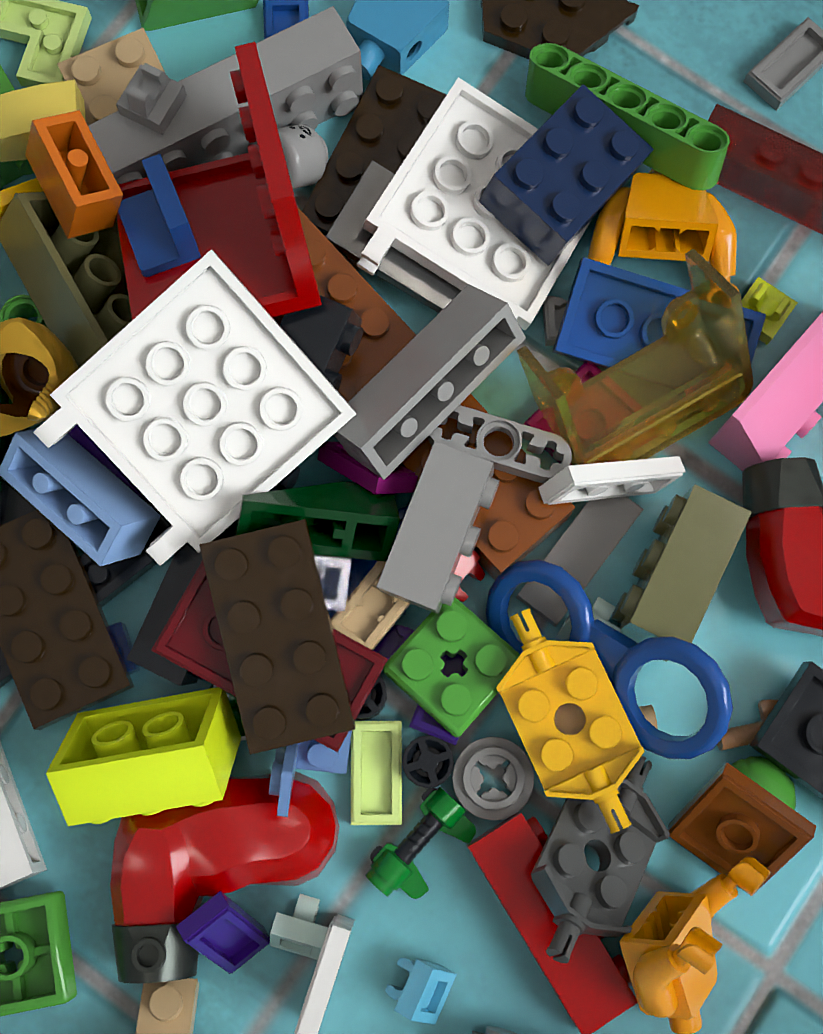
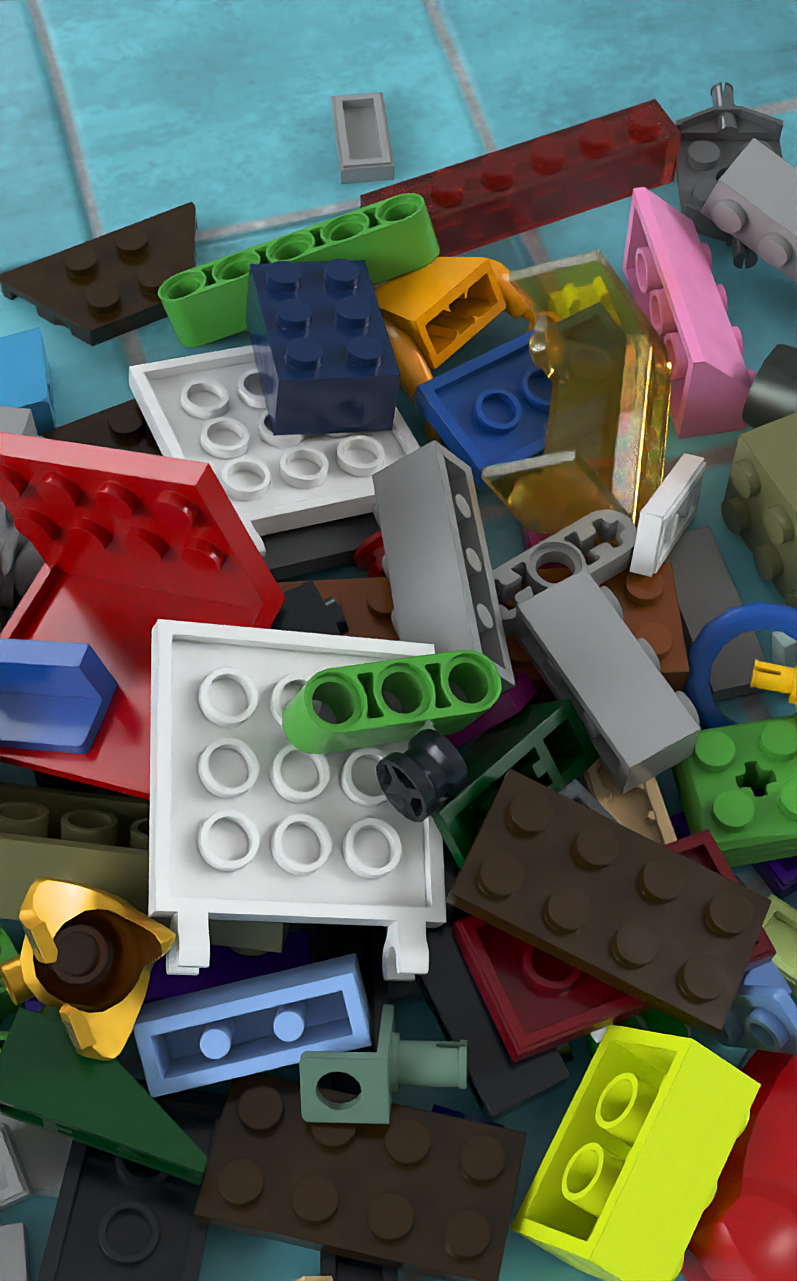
camera: 50 degrees left, 20 degrees down
(105, 584) = (380, 1074): none -> sand green bracket
(254, 474) = (422, 775): none -> black wheel
(292, 446) = (366, 720): none -> bright green beam

